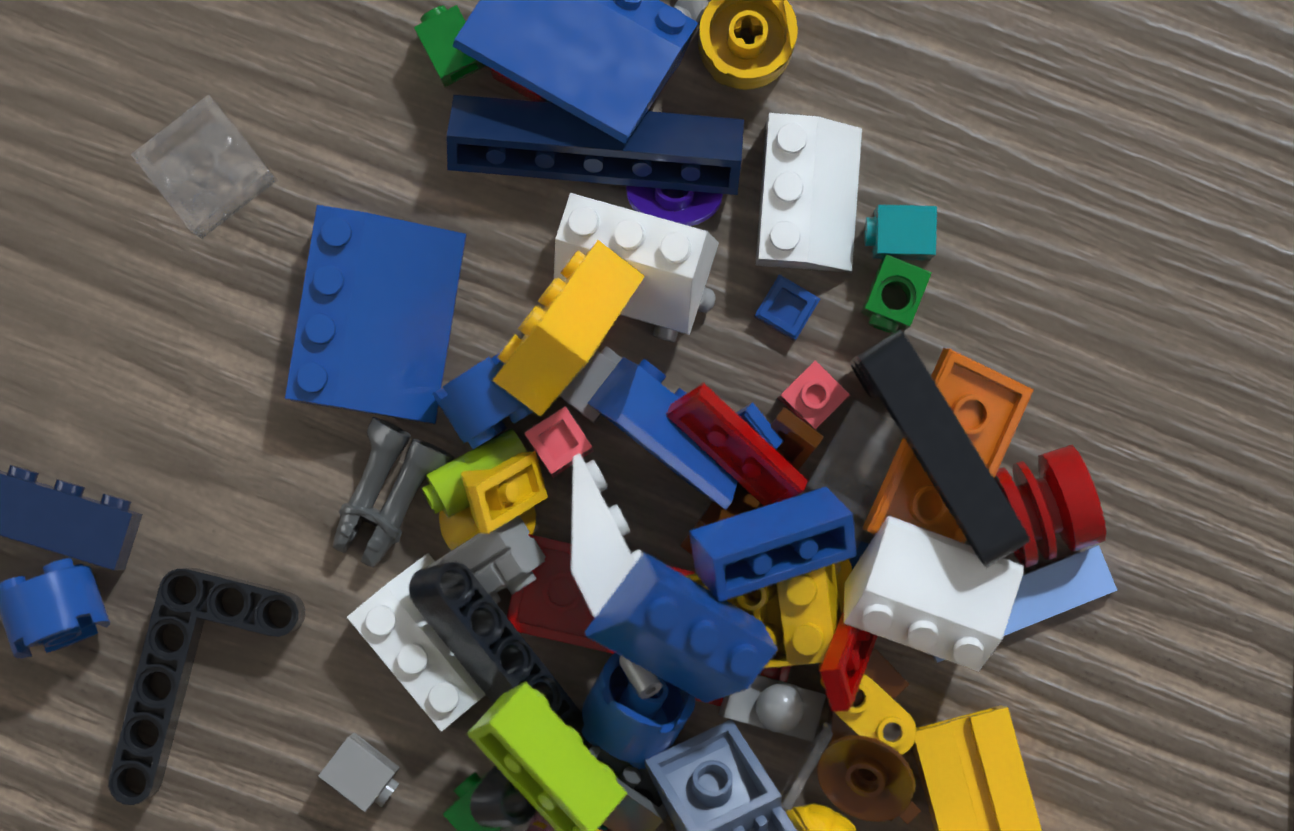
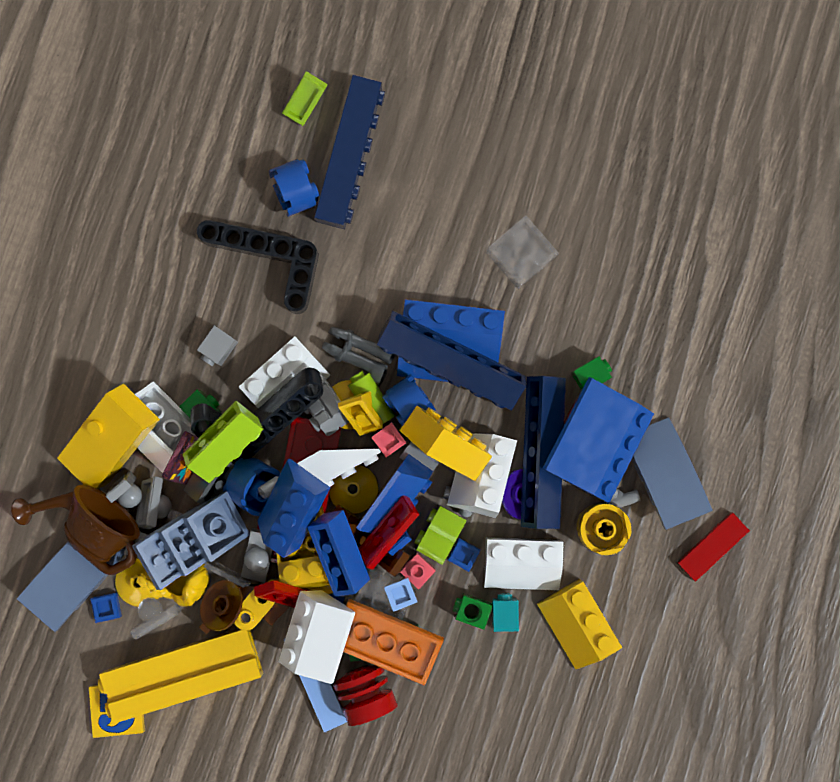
camera: 90 degrees right, 0 degrees up
(409, 313) = (451, 360): none -> dark blue brick
(668, 495) = (363, 498): none -> yellow dish
(745, 349) = (440, 535): none -> lime brick
(857, 427) = (400, 594): none -> light blue plate
(929, 91) = (579, 625): none -> yellow slope
(941, 446) = (392, 638): black beam -> none

